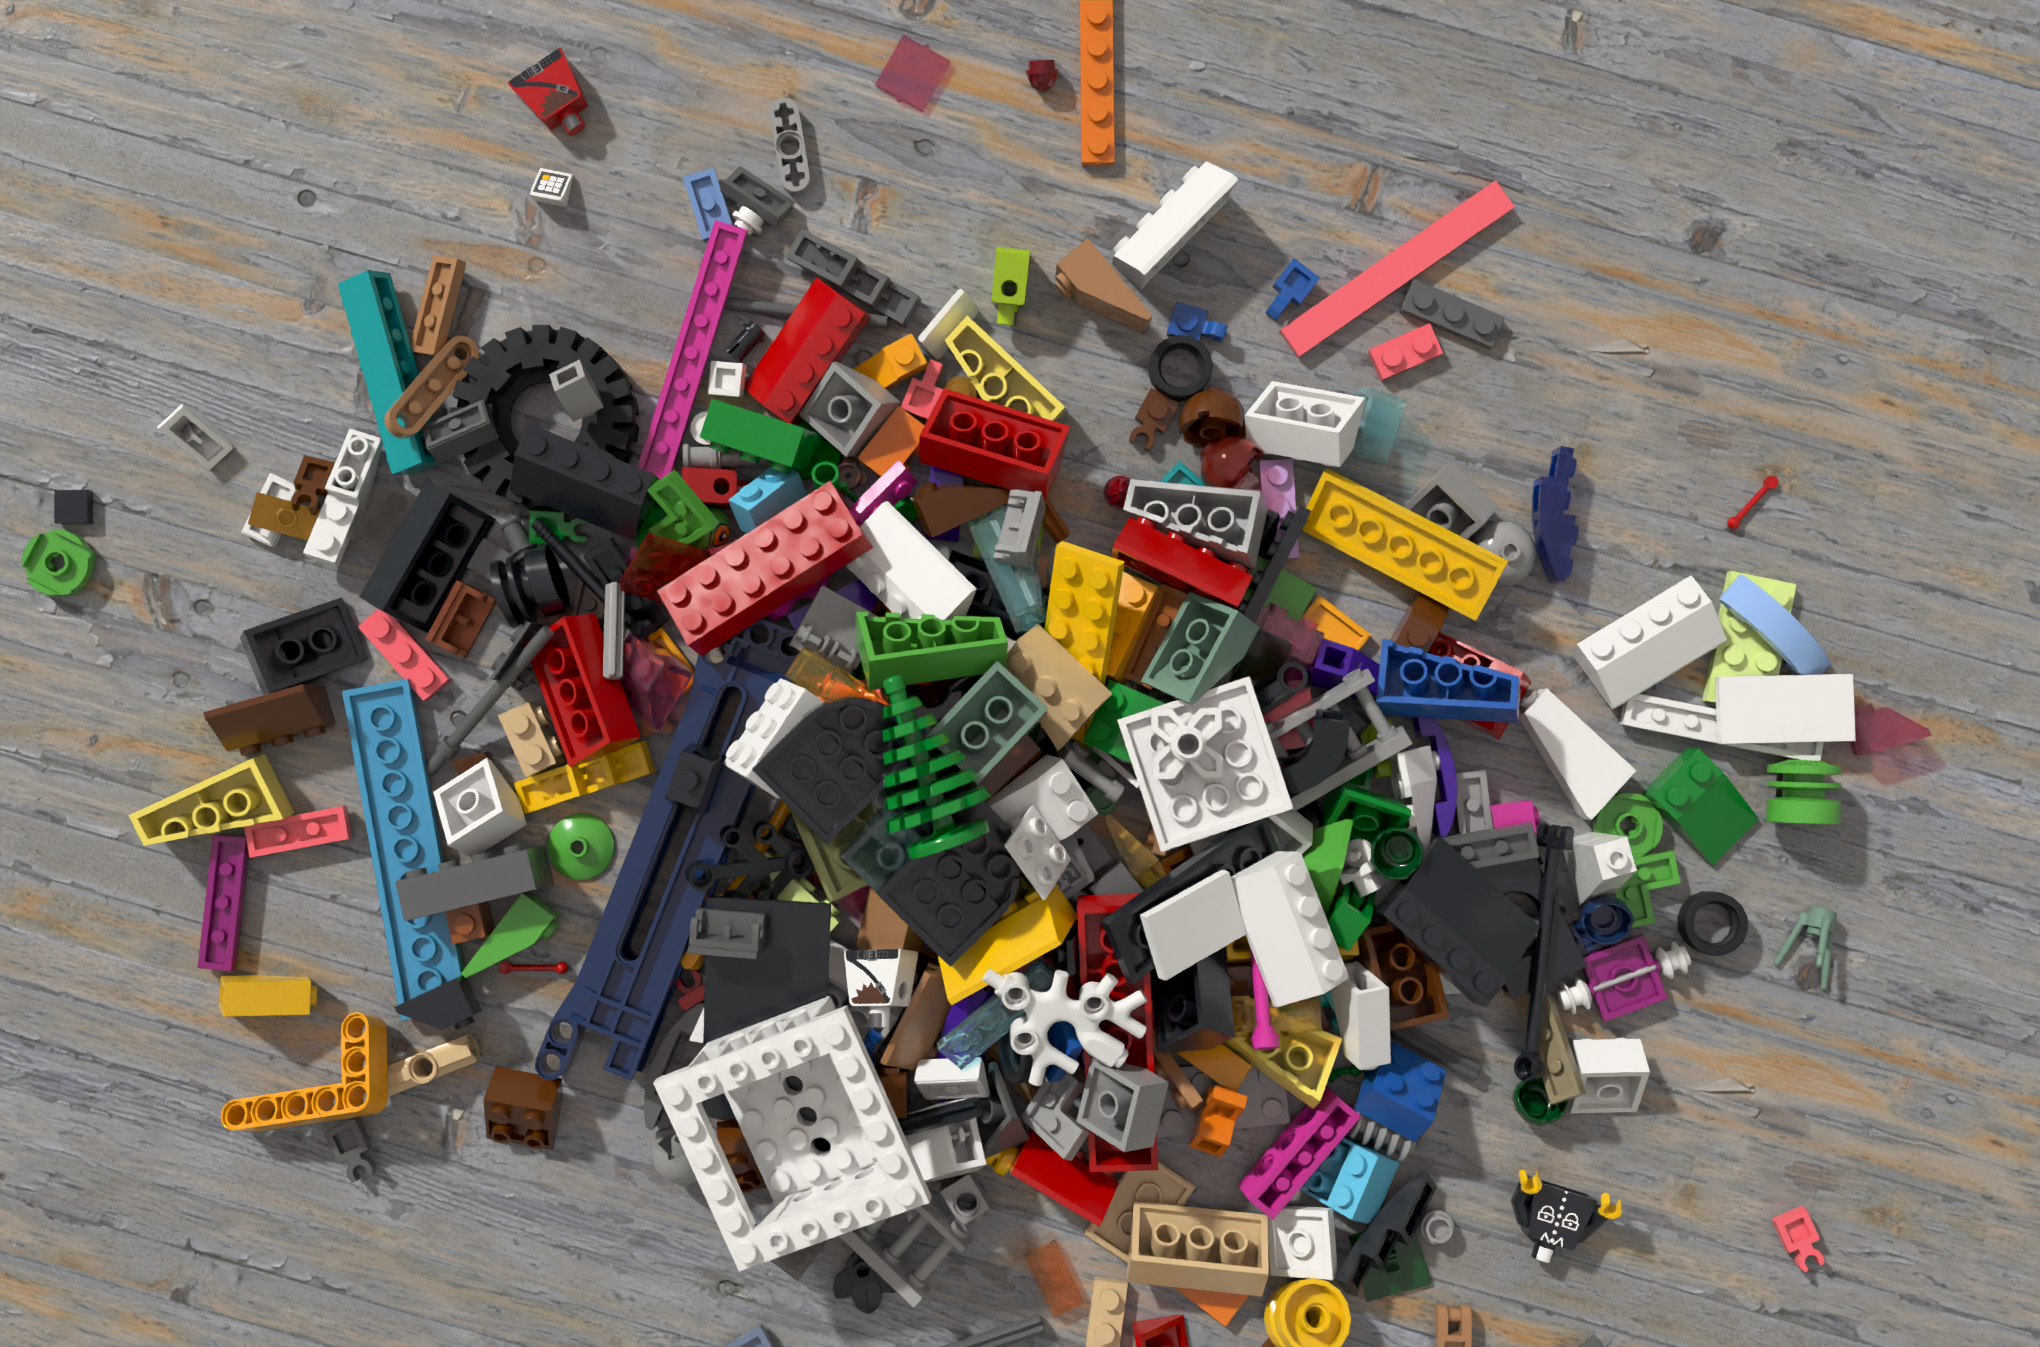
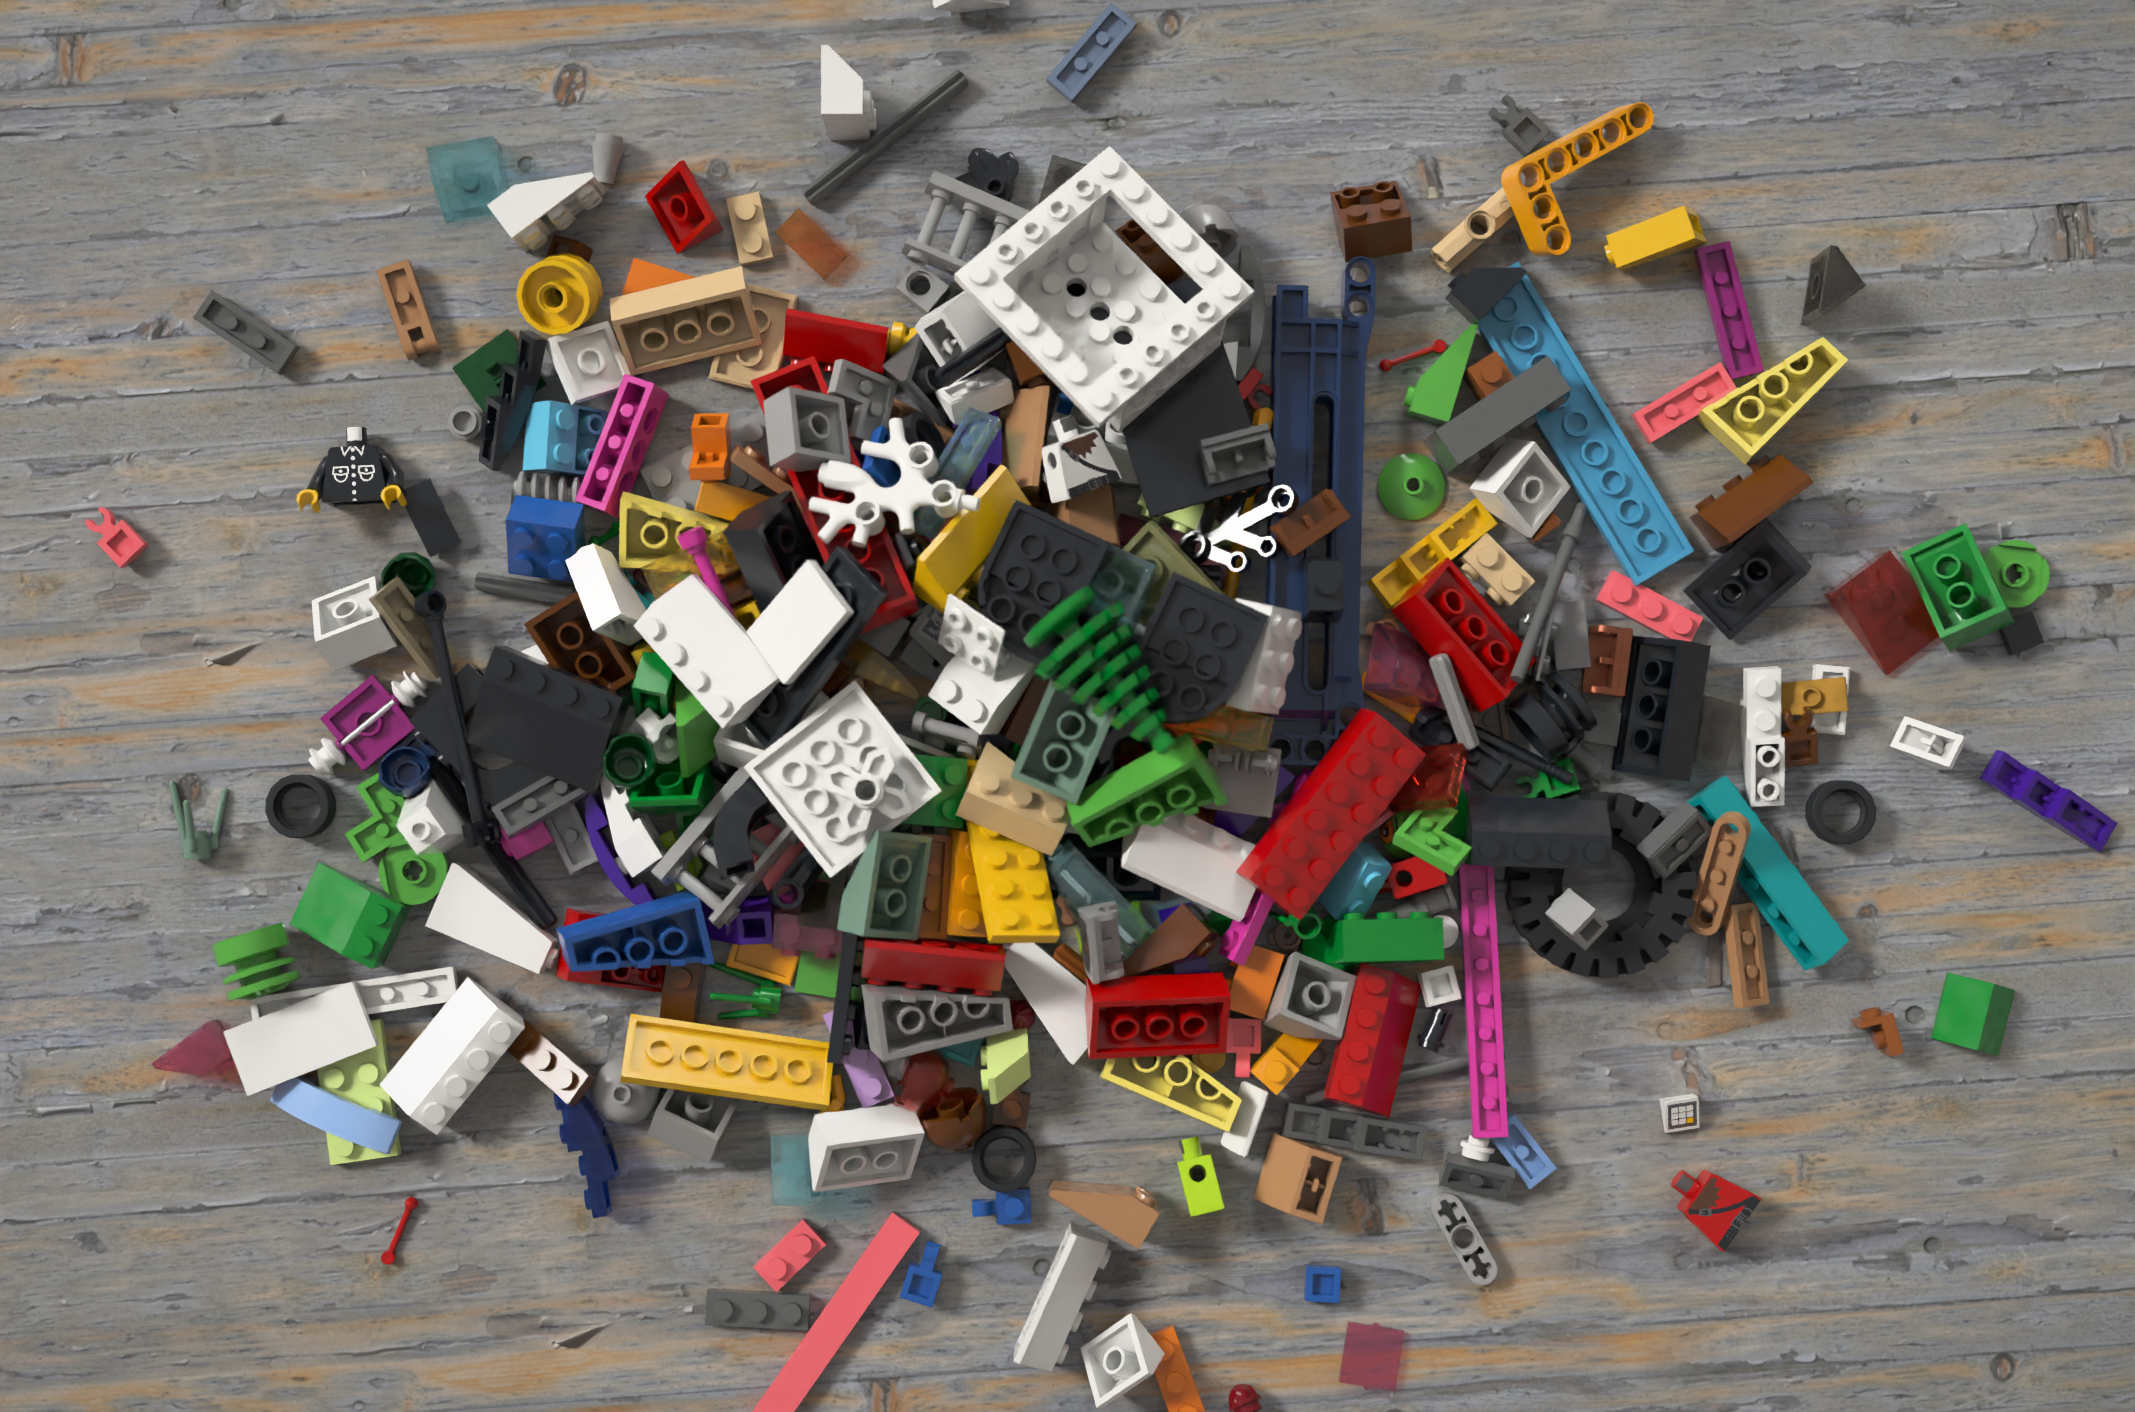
camera: 160 degrees right, 0 degrees up
(108, 345) = (2048, 800): none -> dark purple slope
(112, 569) = (1957, 587): none -> green slope
(119, 893) = (1828, 284): none -> clear smoke slope
(189, 572) = (1884, 611): none -> clear red slope
(253, 179) = (1972, 1013): none -> green slope
(278, 392) = (1864, 800): none -> black tyre
(338, 189) = (1885, 1032): none -> dark orange bracket
(486, 645) = (1572, 637): none -> flat silver tile
(684, 845) = (1309, 523): none -> reddish brown hinge
(919, 253) = (1297, 1177): none -> medium nougat slope
(932, 152) = (1322, 1283): none -> blue plate
(1081, 497) = (1052, 993): none -> white slope
(1140, 148) = (1120, 1359): none -> white slope
(1146, 451) = (1006, 1063): none -> yellowish green slope
(1310, 479) = (838, 1095): none -> light orange plate
(1347, 589) = (764, 999): none -> green plant
(1500, 1149) = (430, 517): none -> black slope
(1540, 798) = (506, 865): none -> black axle
(1564, 601) = (551, 1064): none -> plate

